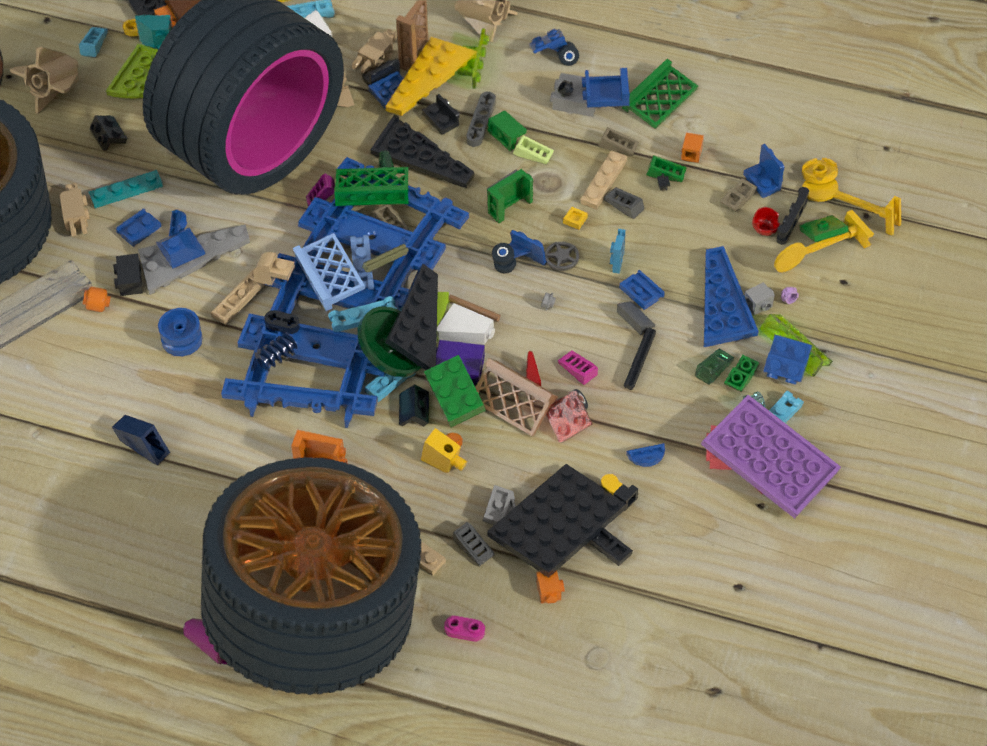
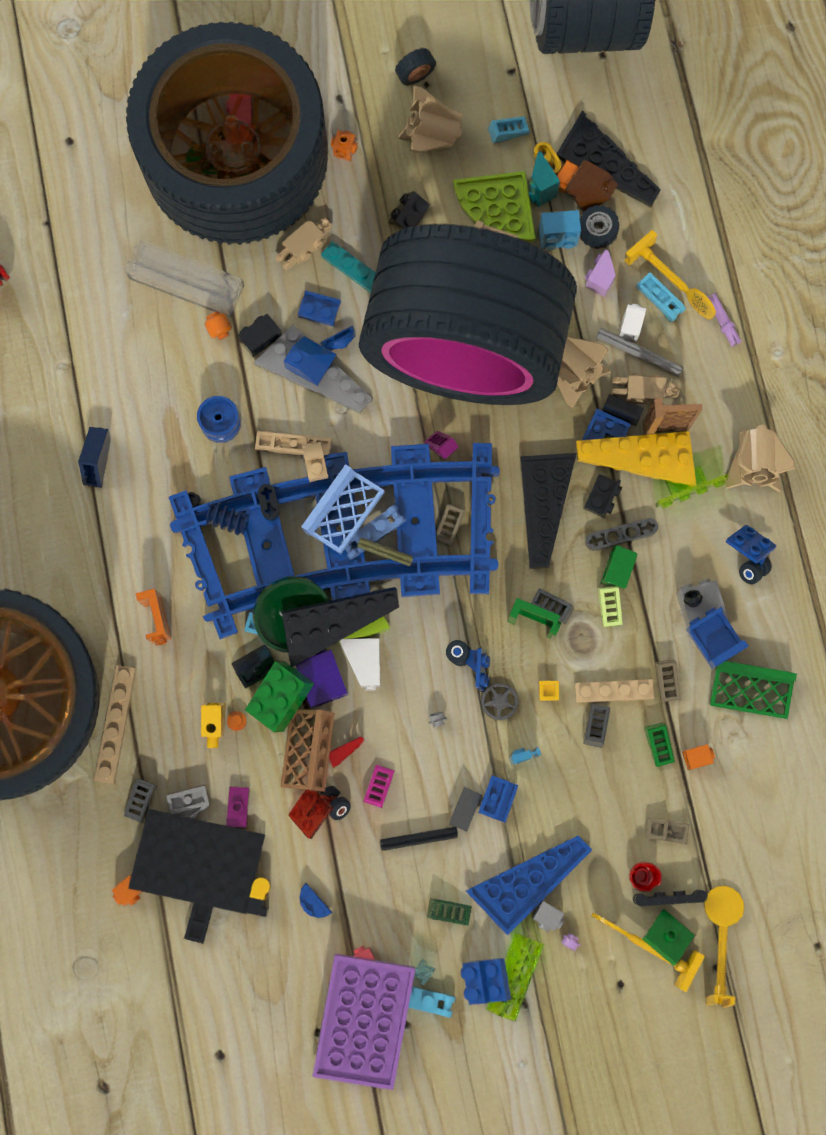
camera: 60 degrees right, 25 degrees up
(354, 315) = (315, 568): medium azure plate -> none
(358, 35) = (639, 352): none -> light grey axle
(371, 193) = (456, 498): green fence -> none
(385, 160) = (508, 482): clear green cone -> none
(463, 629) = (55, 838): dark pink plate -> none
(480, 310) = (394, 655): medium nougat bar -> none
(527, 474) = (238, 807): none -> magenta plate
(663, 182) = (640, 750): black plate -> none
(742, 373) = (453, 942): green slope -> none
(767, 174) = (705, 845): blue bracket -> none
(828, 171) = (733, 898): yellow tile -> none

